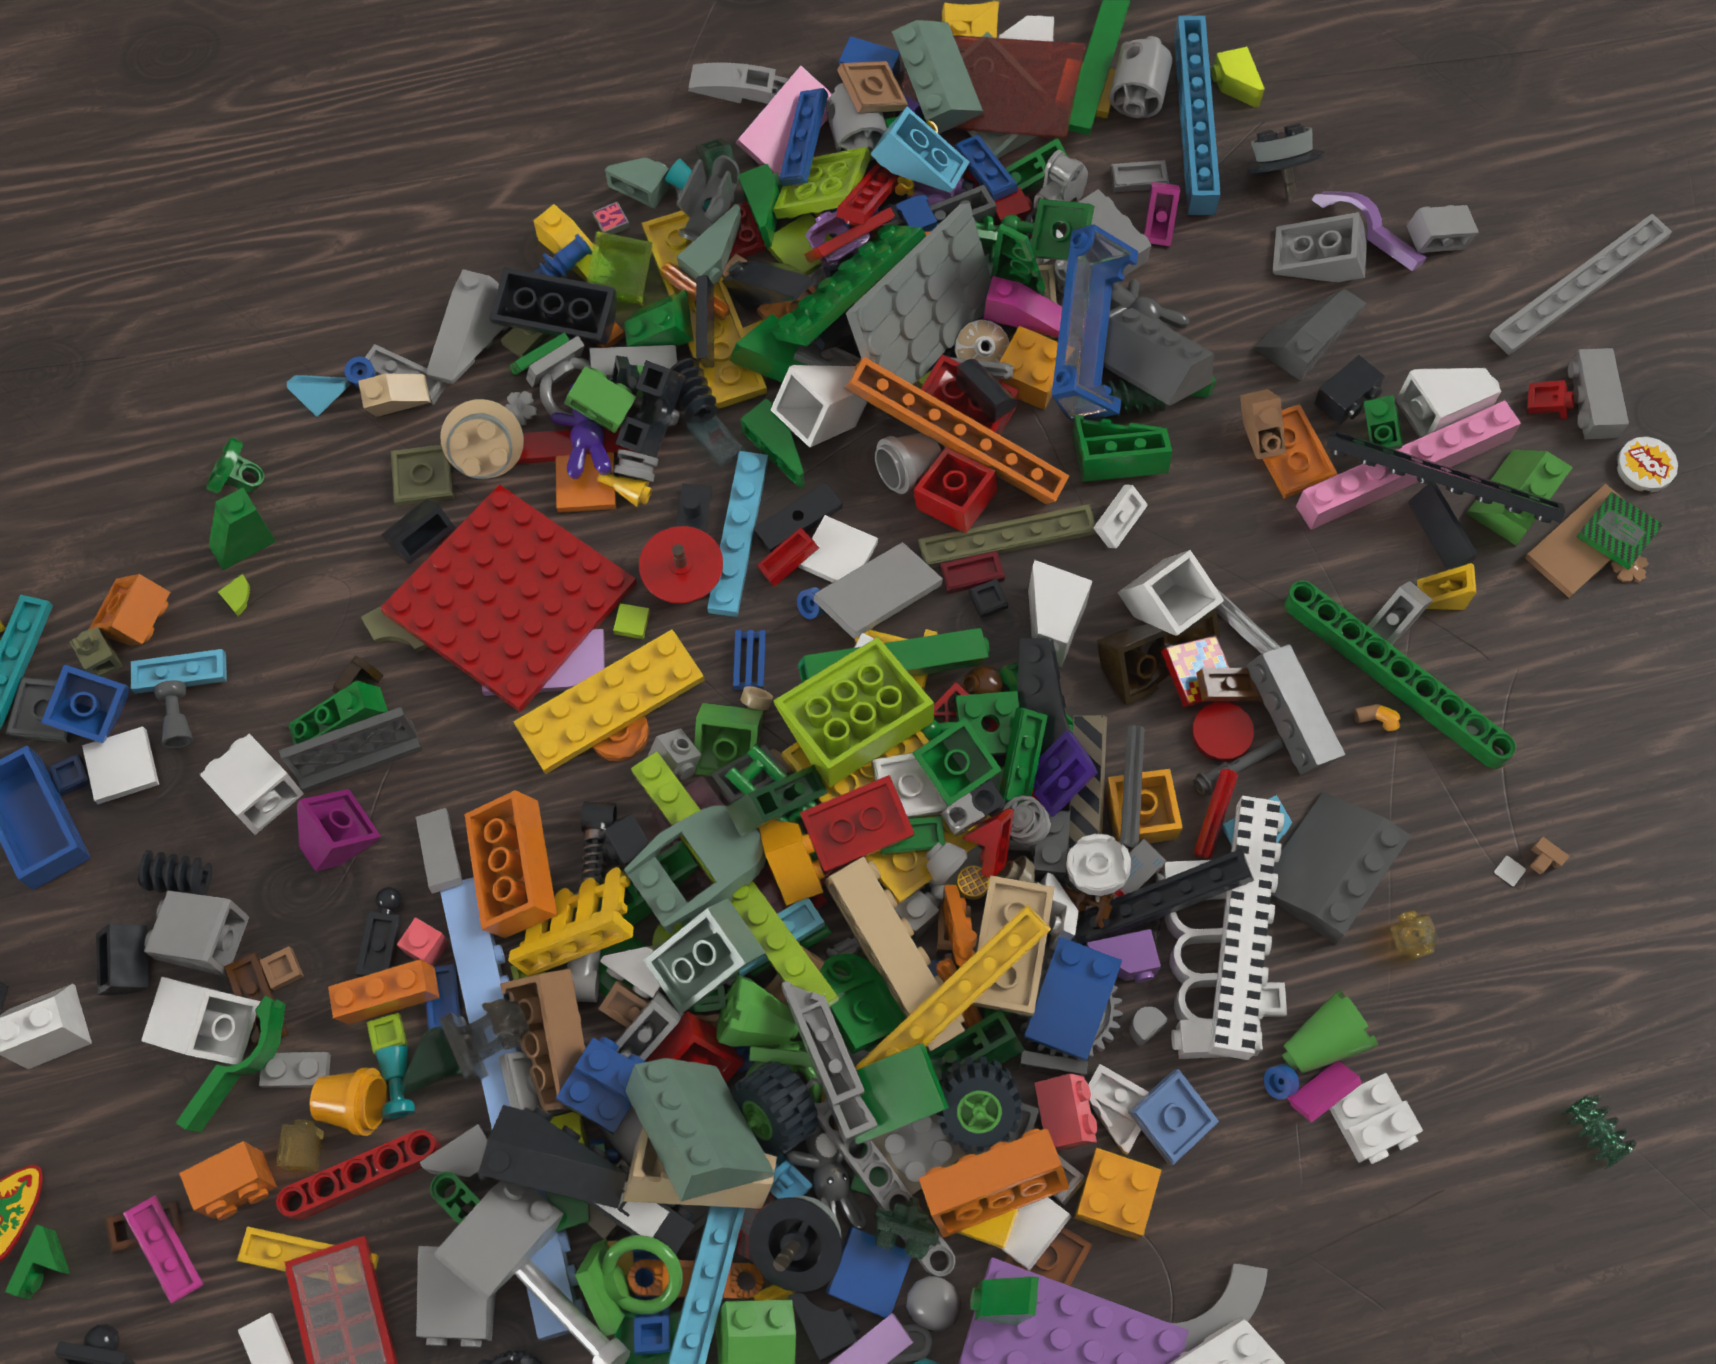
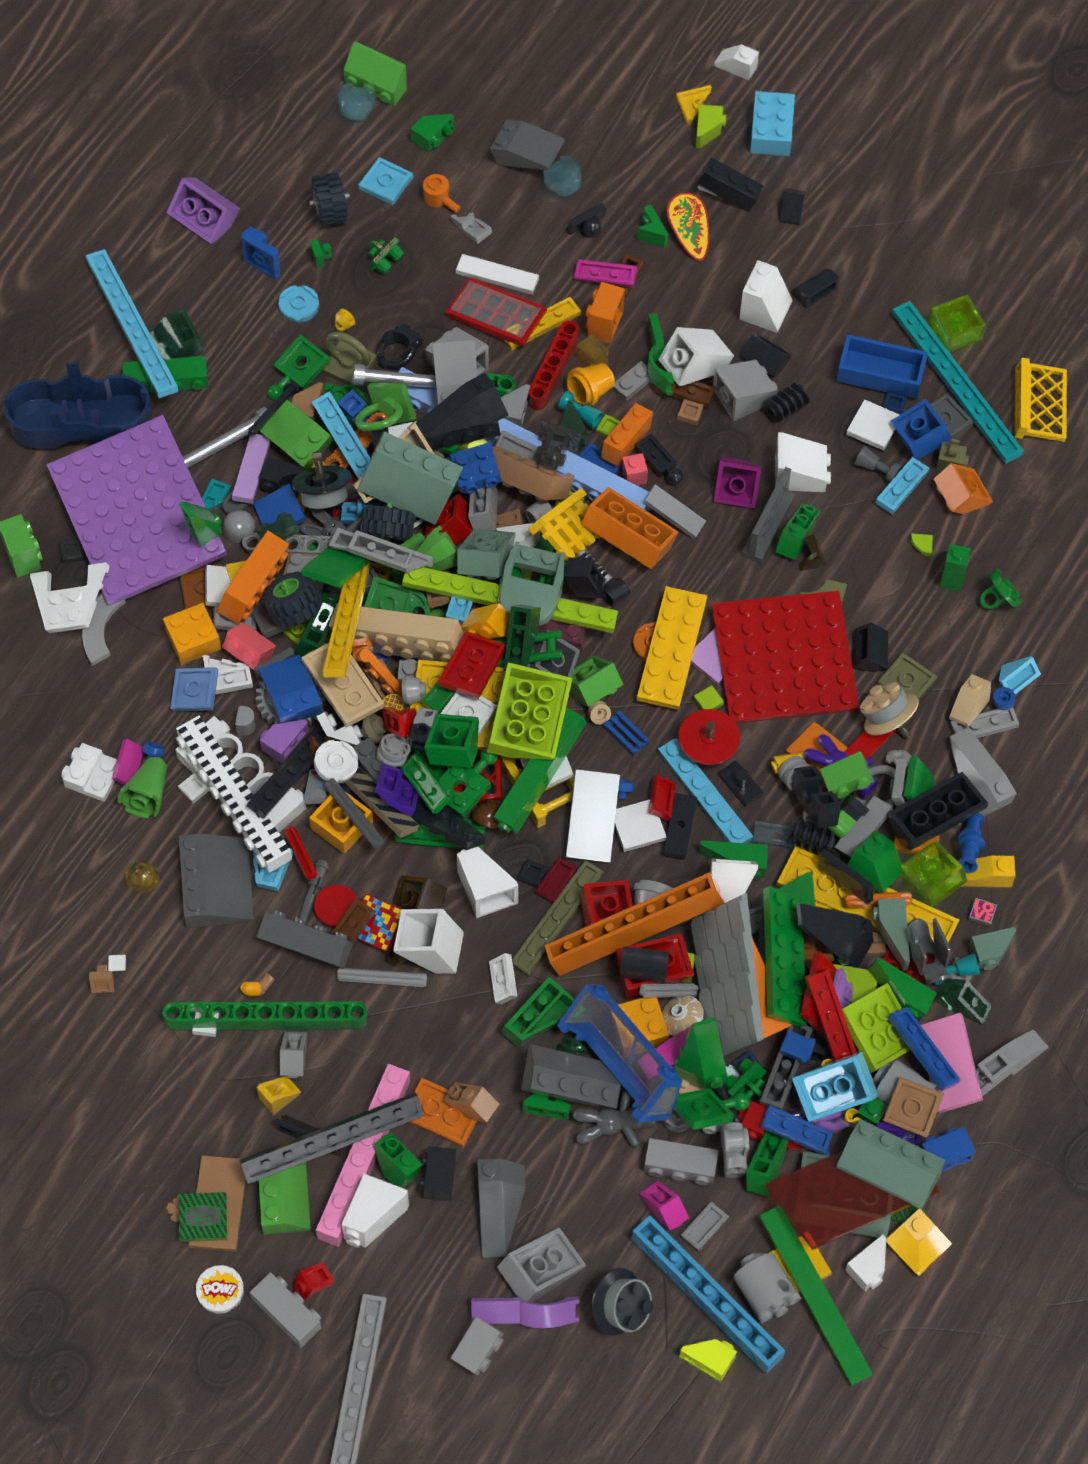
camera: 135 degrees right, 5 degrees down
(677, 753) = (616, 647): light grey brick -> none

